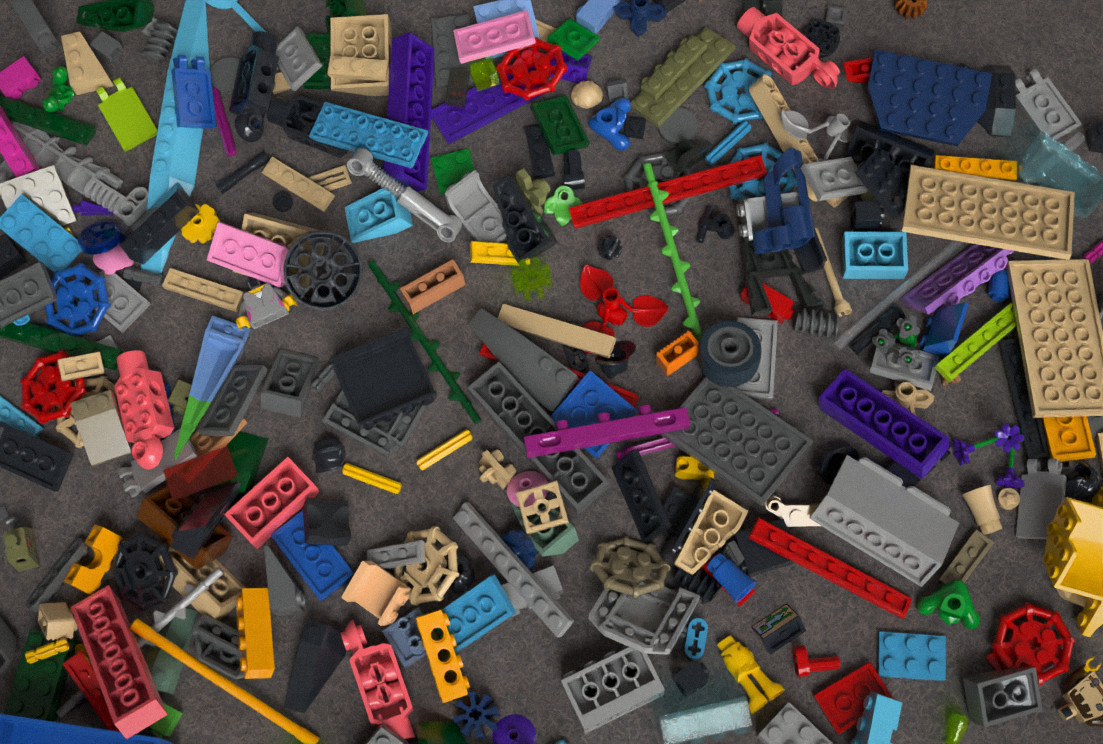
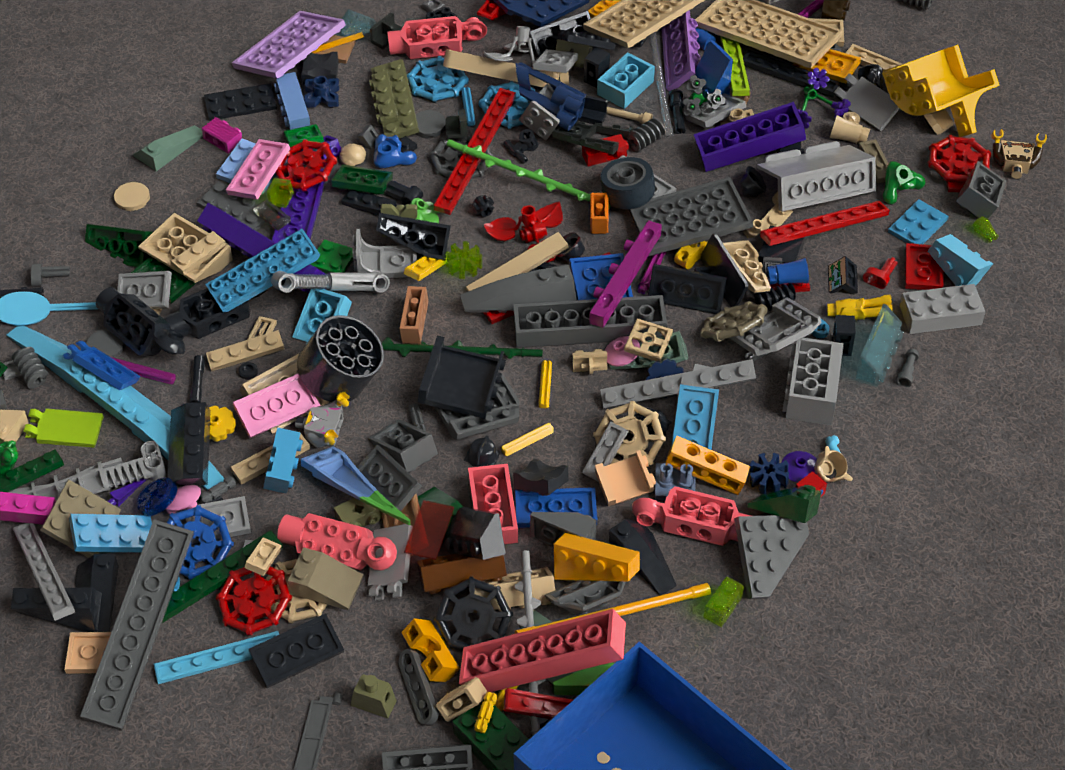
camera: 60 degrees left, 20 degrees down
(195, 304) = (283, 460): none -> dark azure wedge

